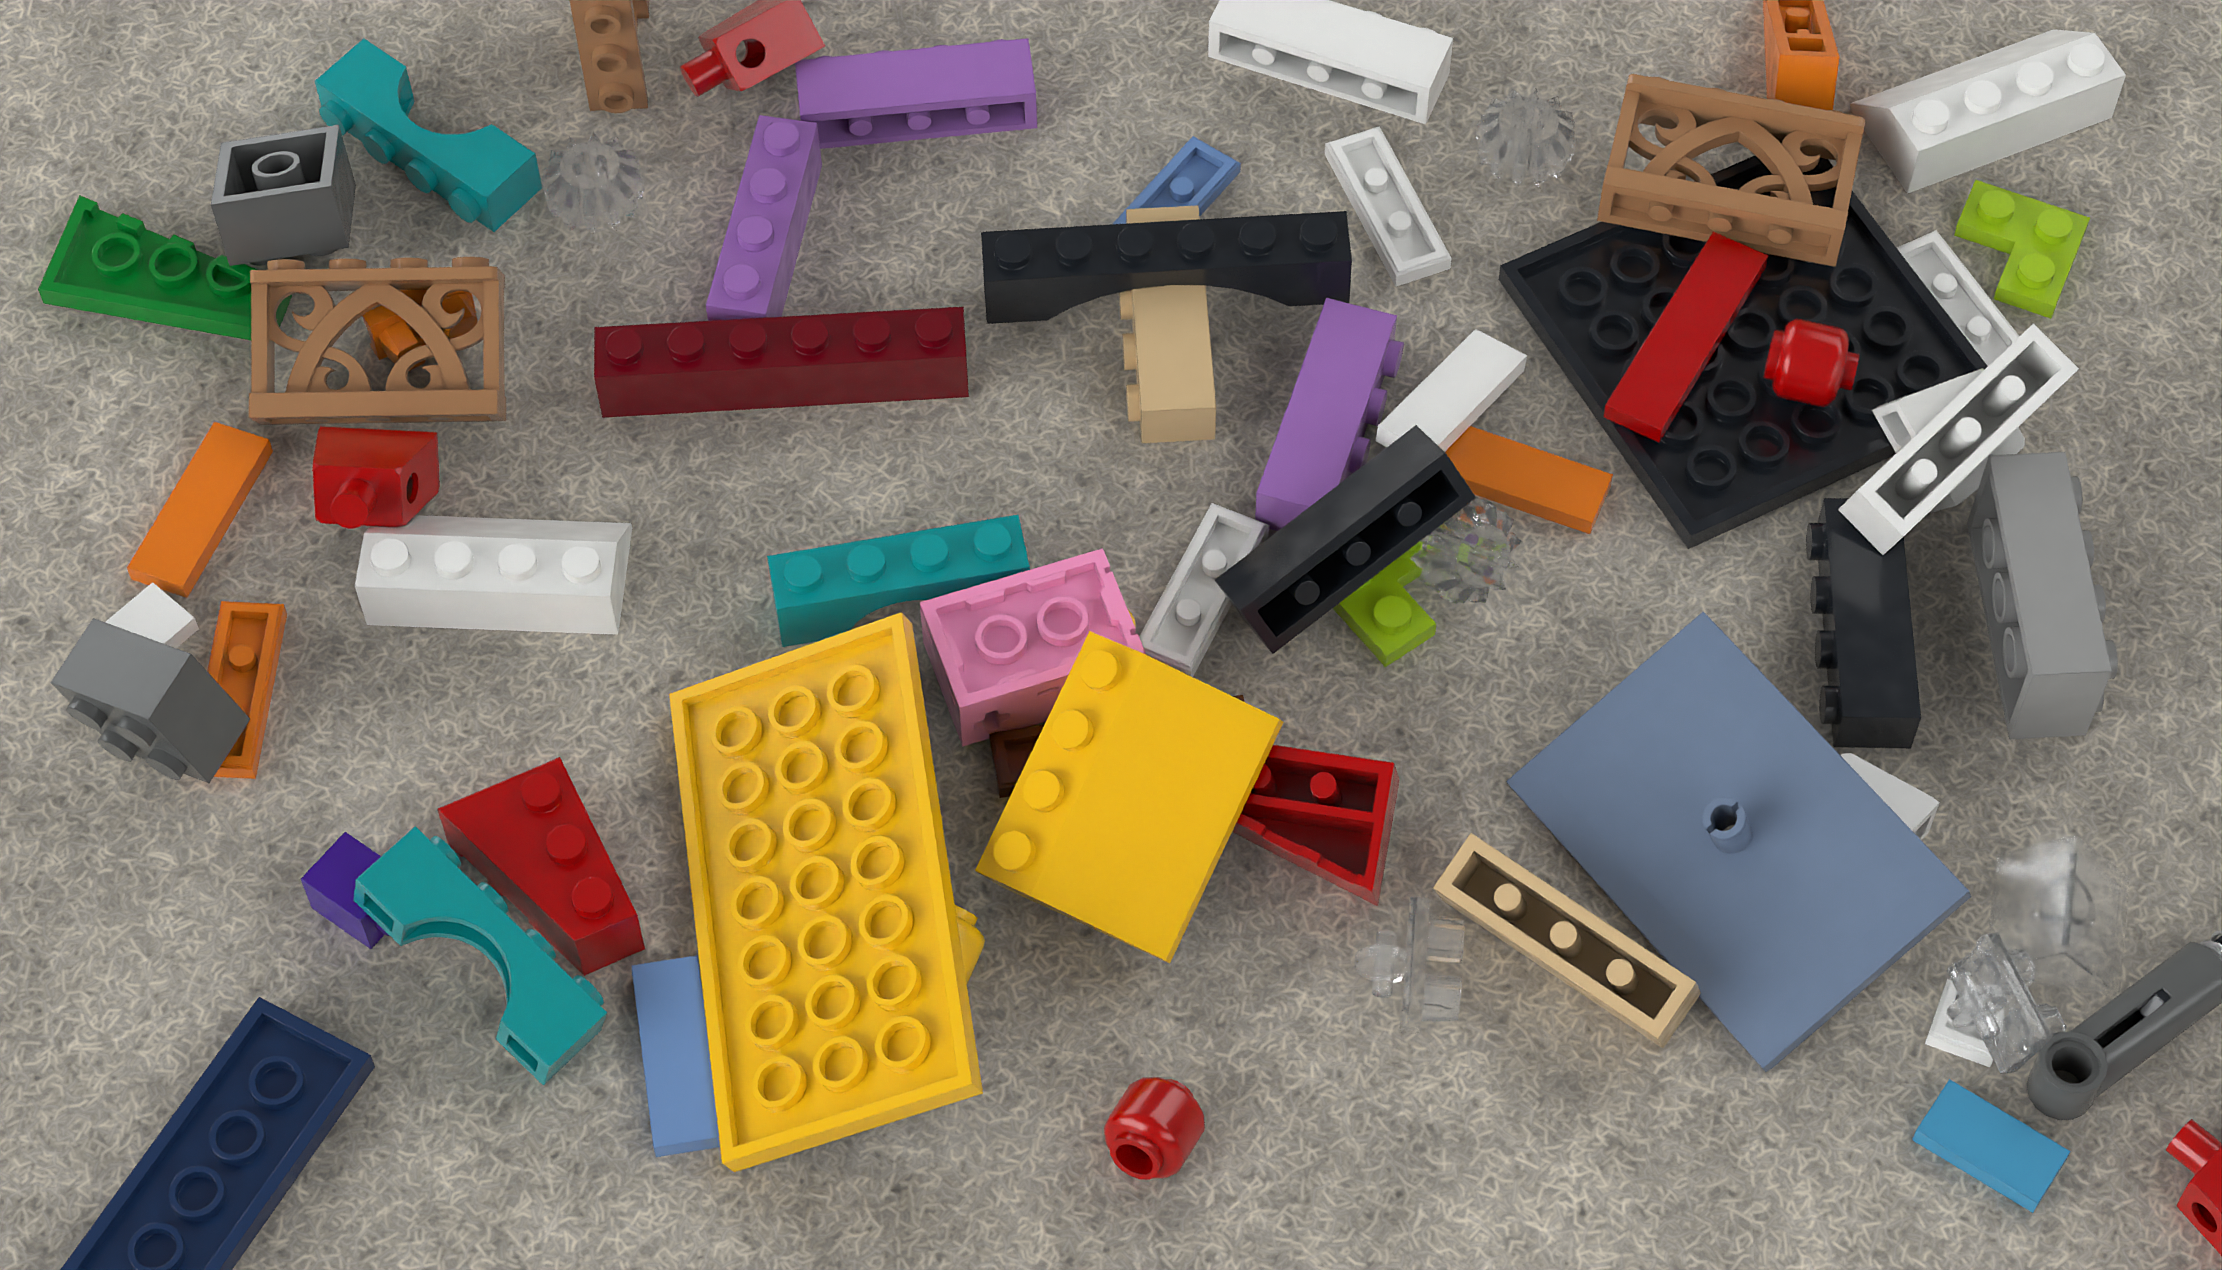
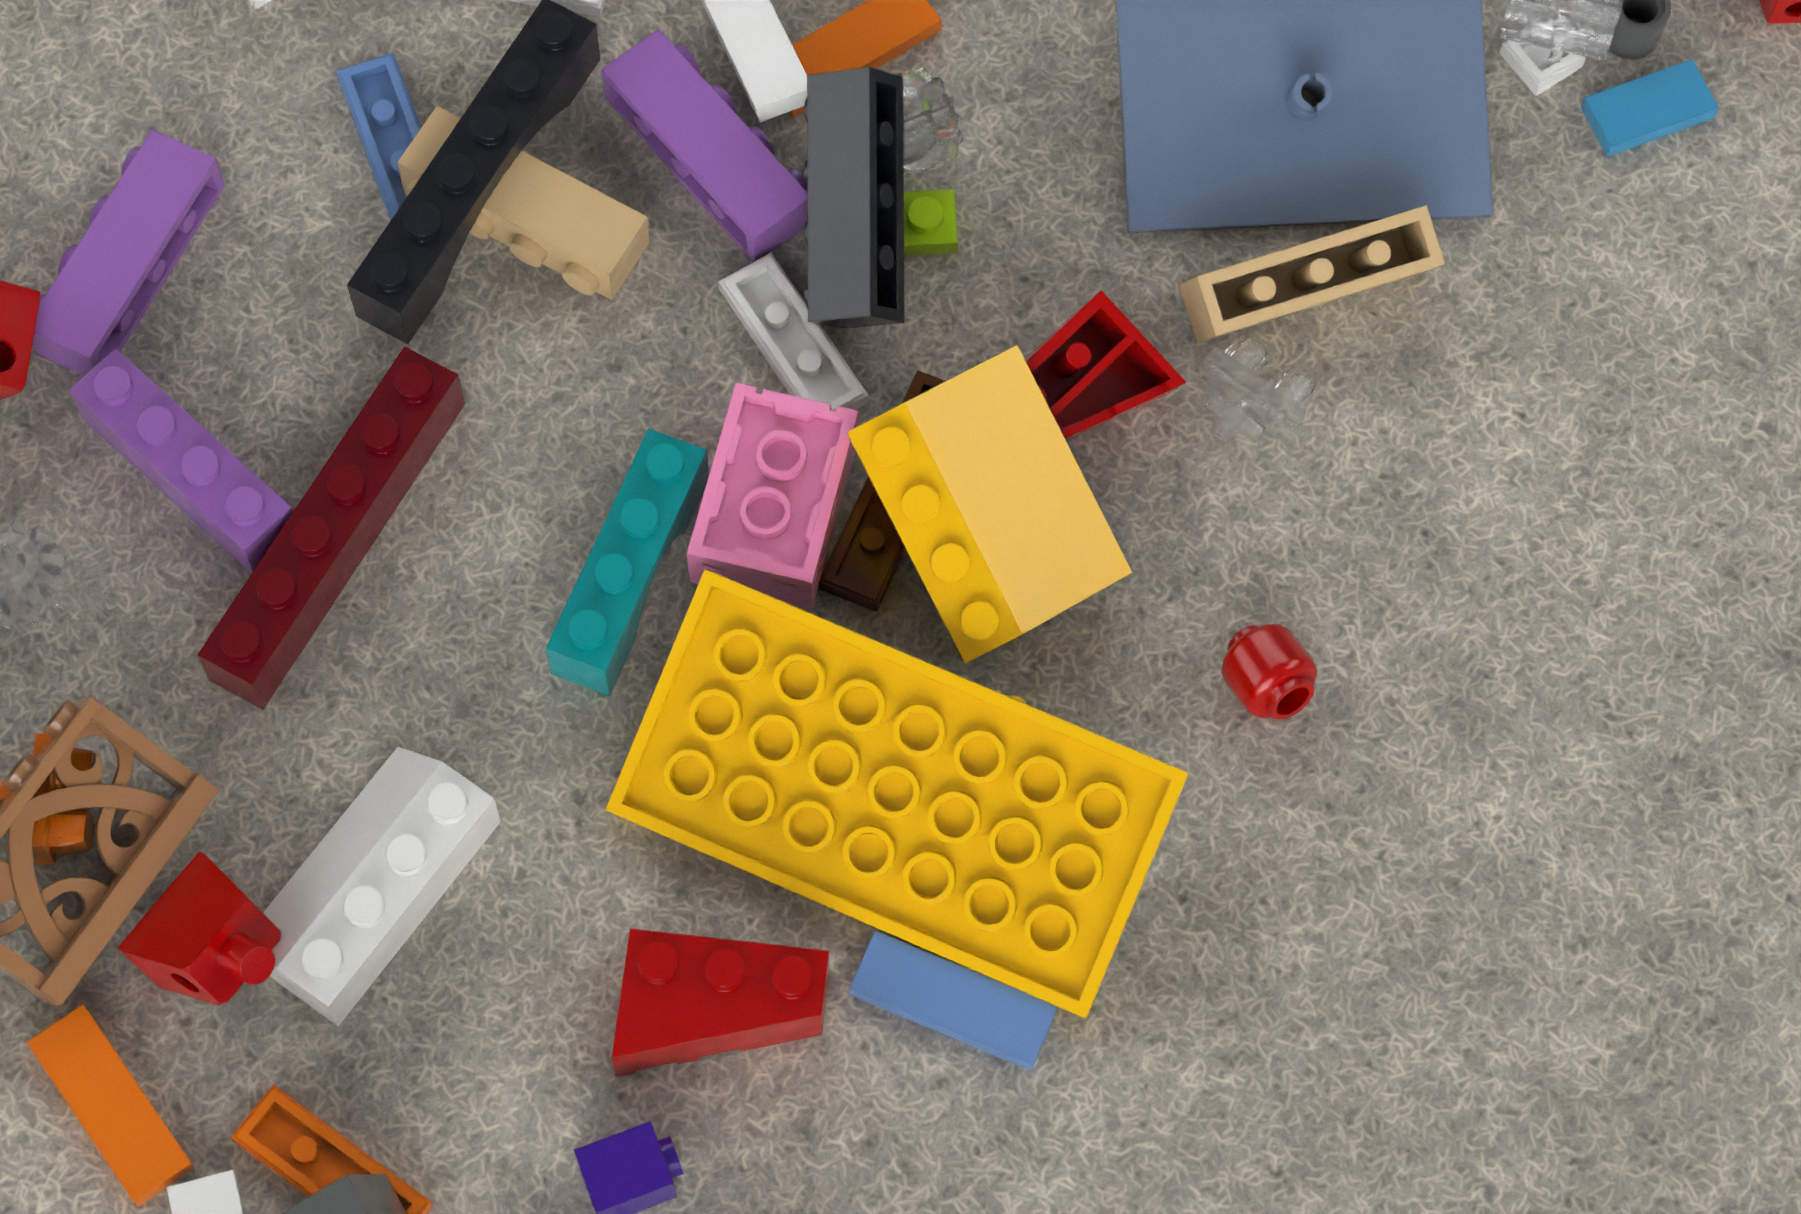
camera: 60 degrees left, 10 degrees up
(423, 894) = (854, 1082): teal arch -> none

